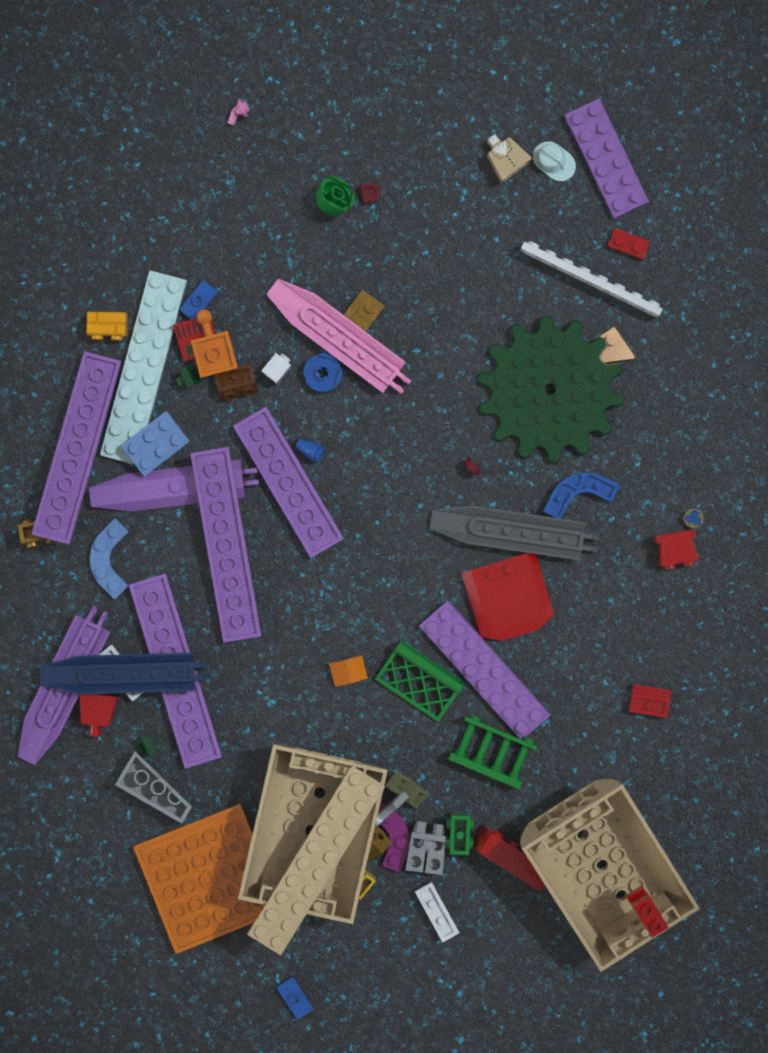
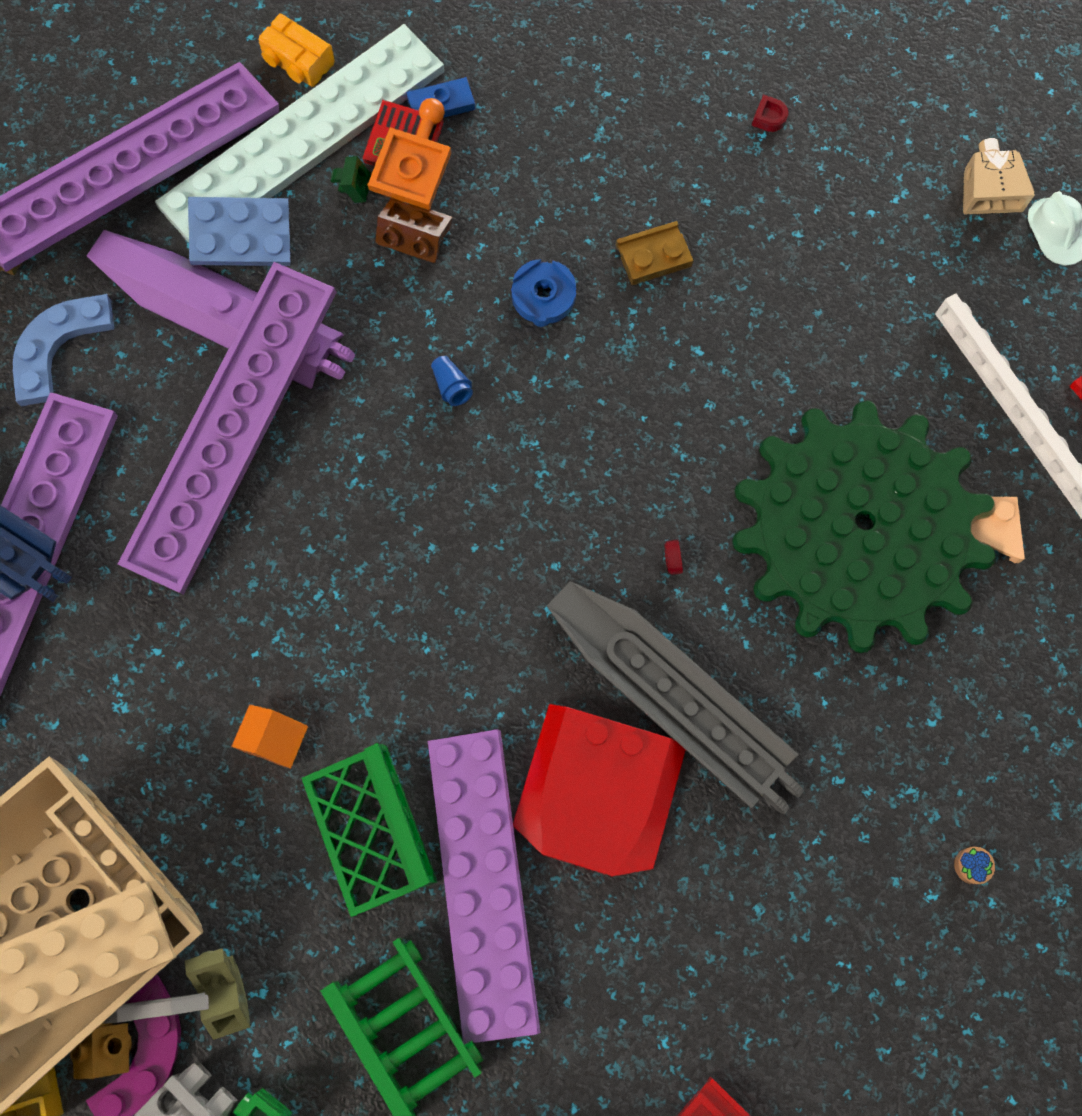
camera: 30 degrees right, 15 degrees down
(277, 367) = (483, 243): white brick -> none
(288, 482) = (385, 408): medium lavender plate -> none
(334, 196) = (718, 79): green cylinder -> none
(338, 335) = (604, 262): bright pink hinge -> none
(578, 484) = (823, 690): blue plate -> none
(676, 549) = (920, 896): red hips -> none

